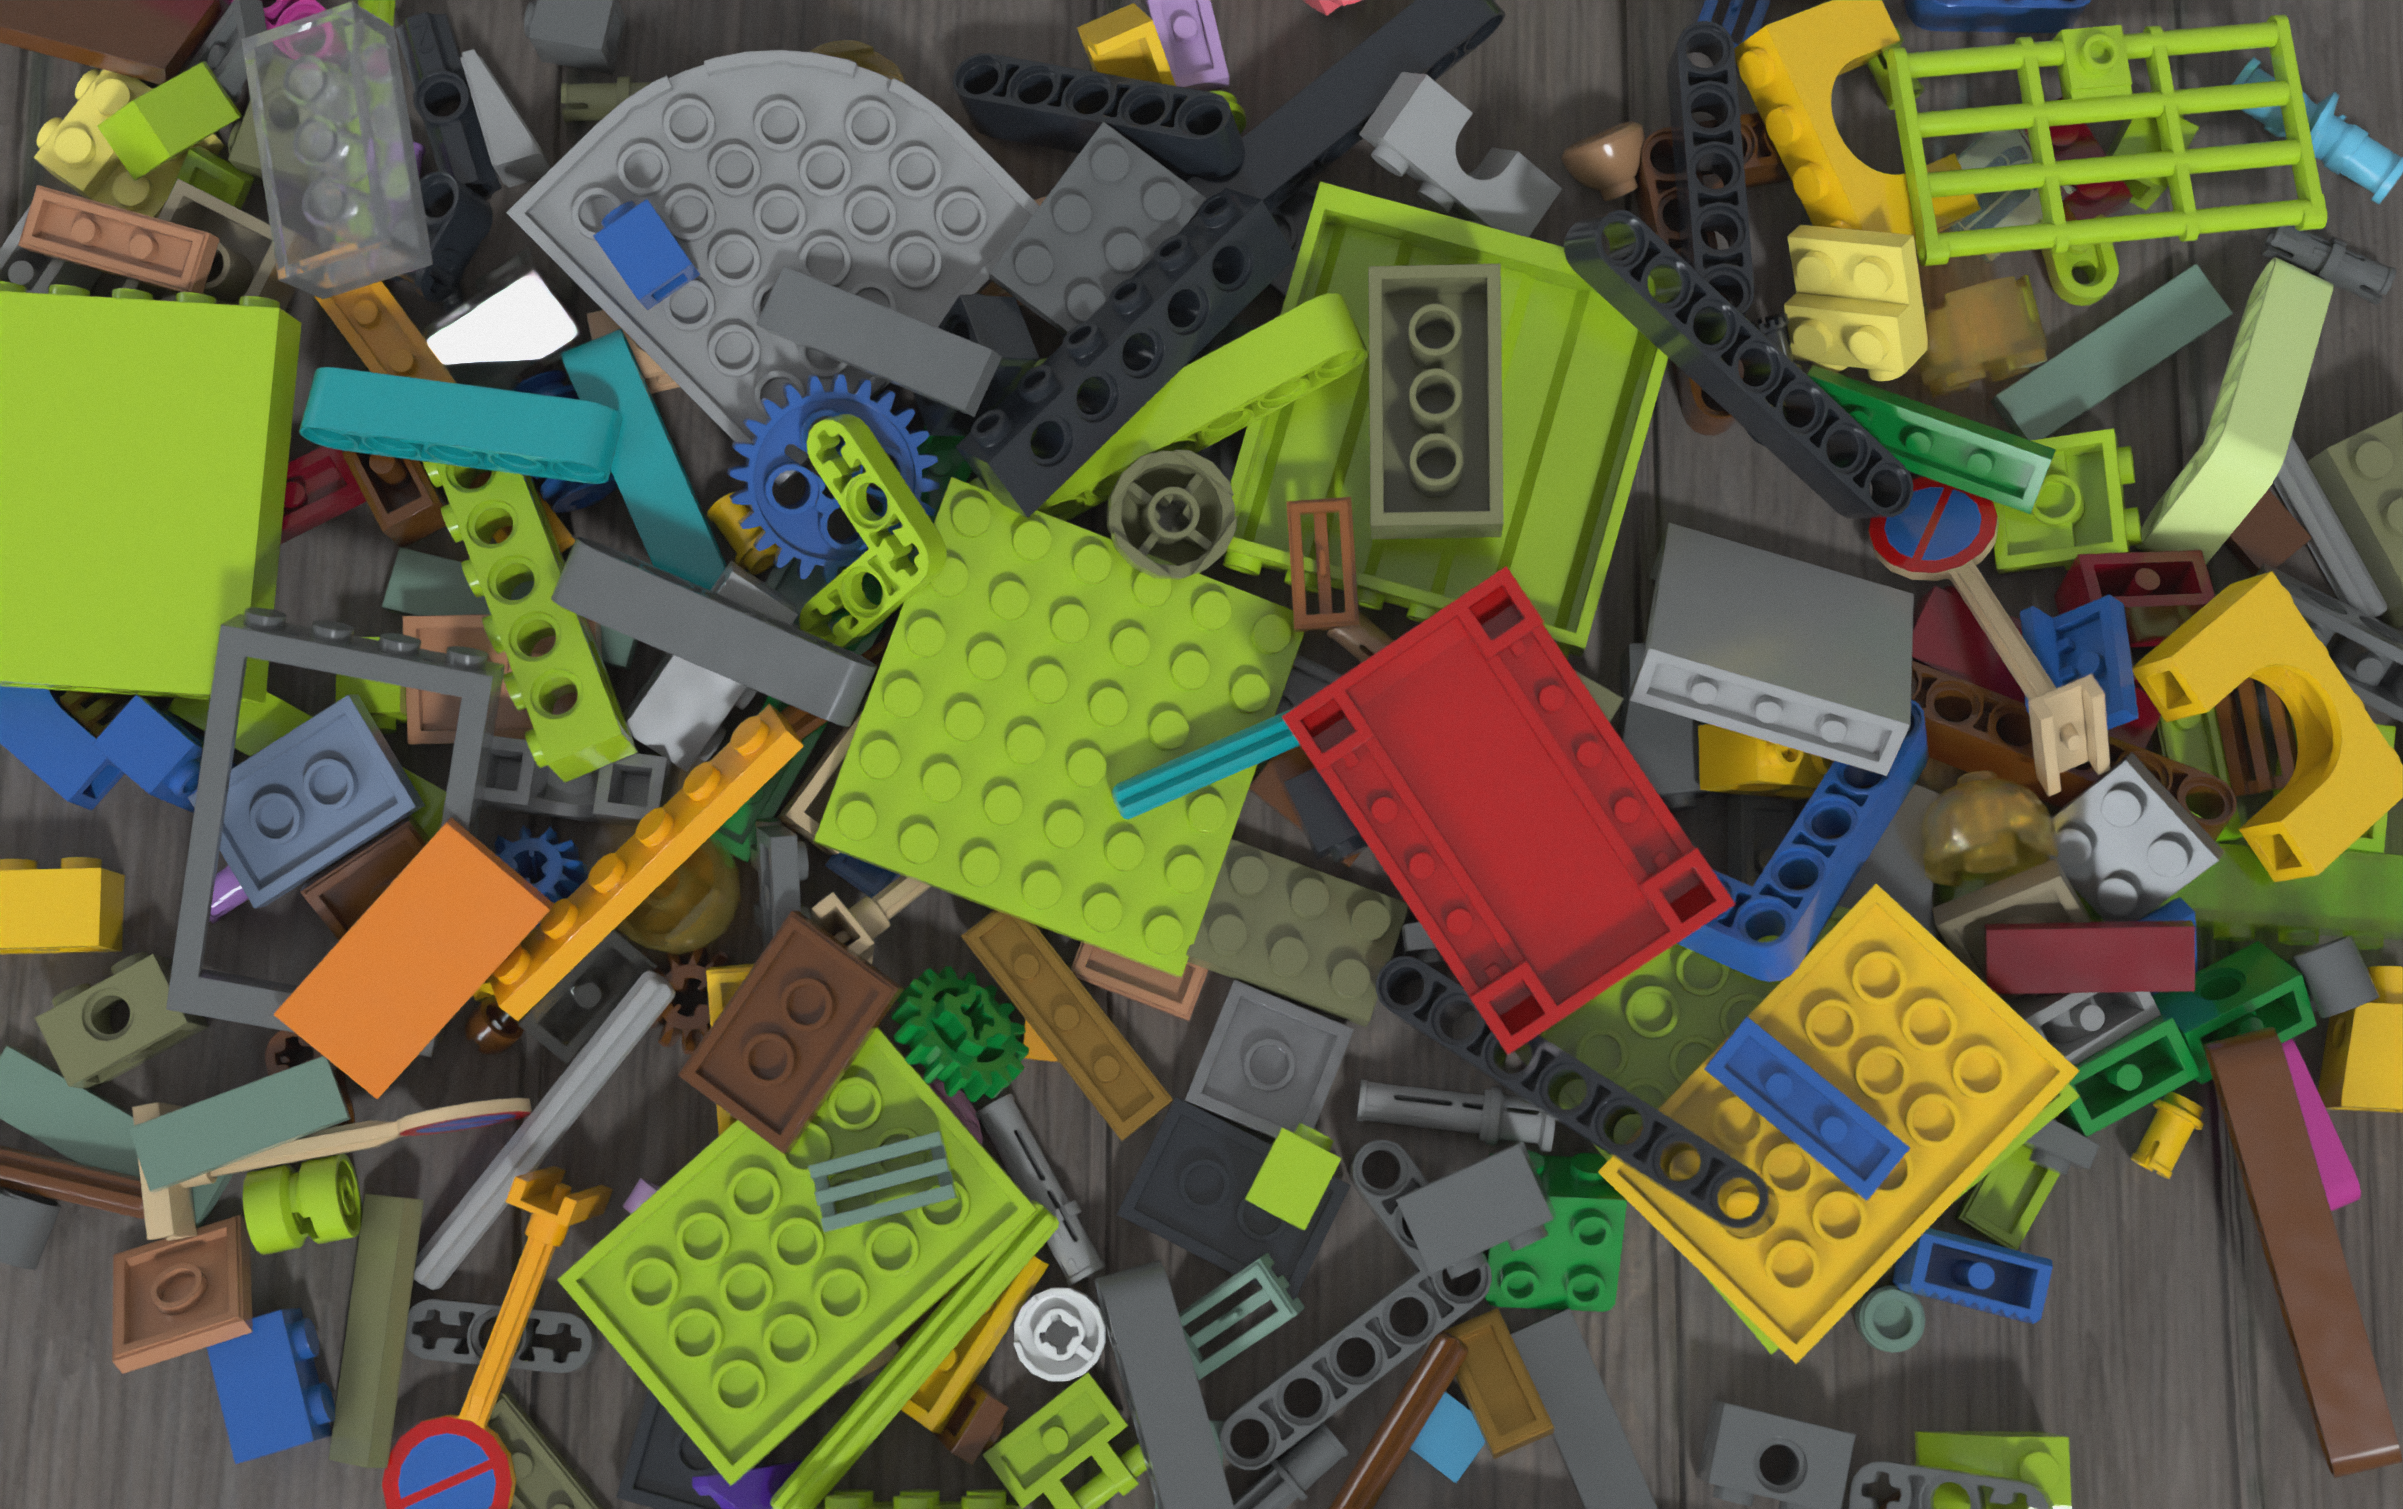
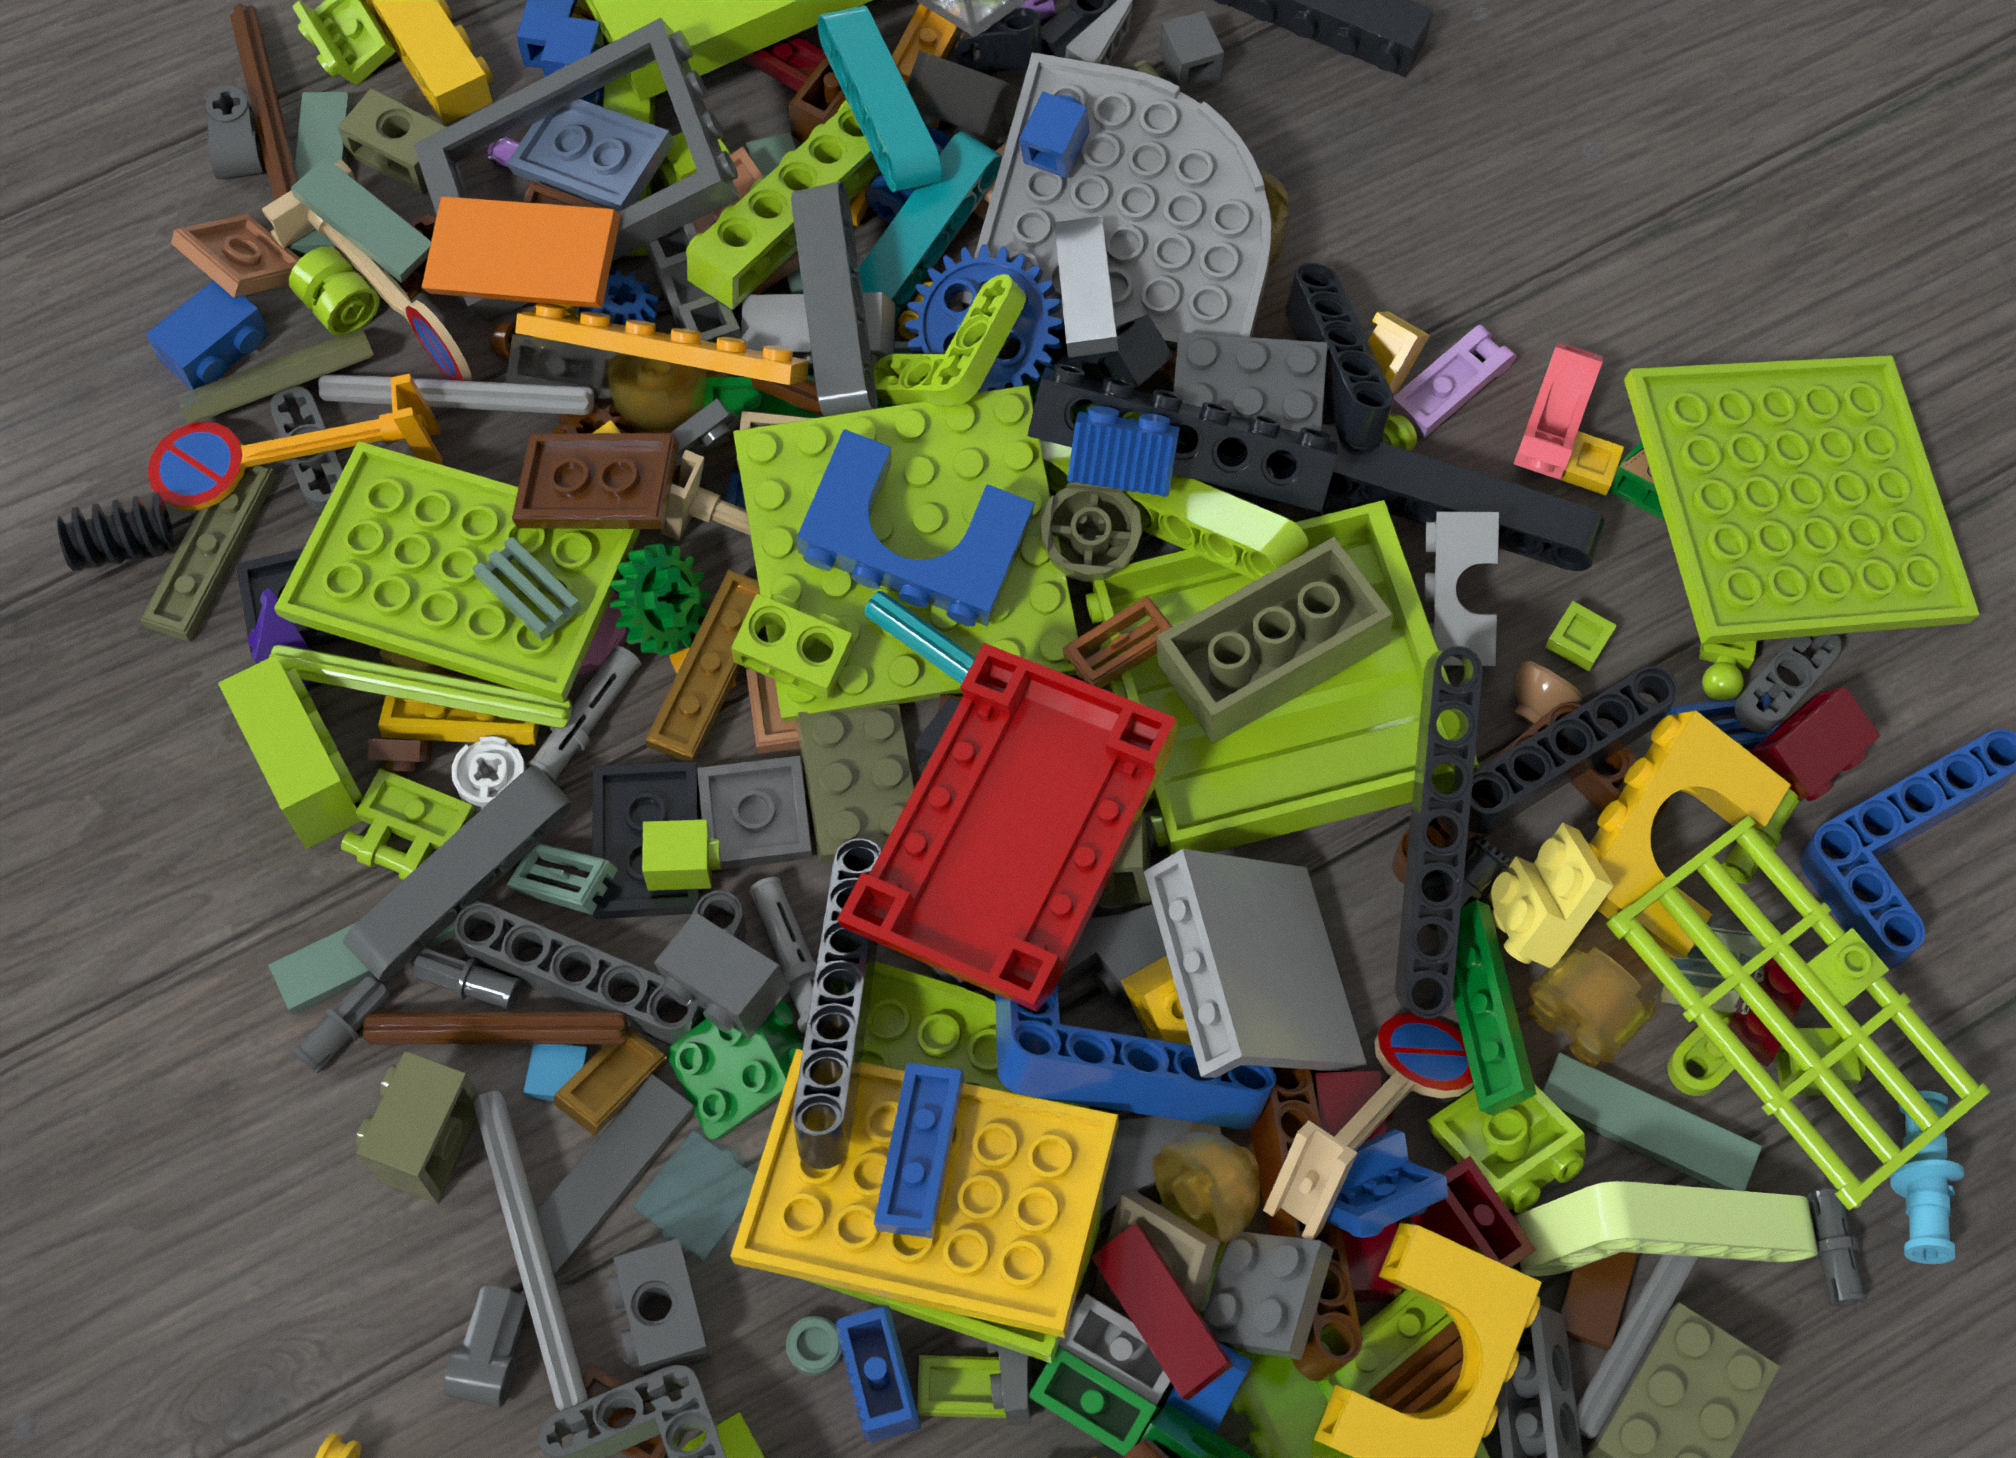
camera: 60 degrees right, 15 degrees down
(1124, 427) = (1123, 451): none -> blue brick
(1134, 932) = (786, 658): none -> lime brick
(1157, 685) = (961, 581): none -> blue arch
(1561, 77) = (1580, 636): none -> lime plate
(1663, 1353) = (697, 1195): none -> clear light blue piece

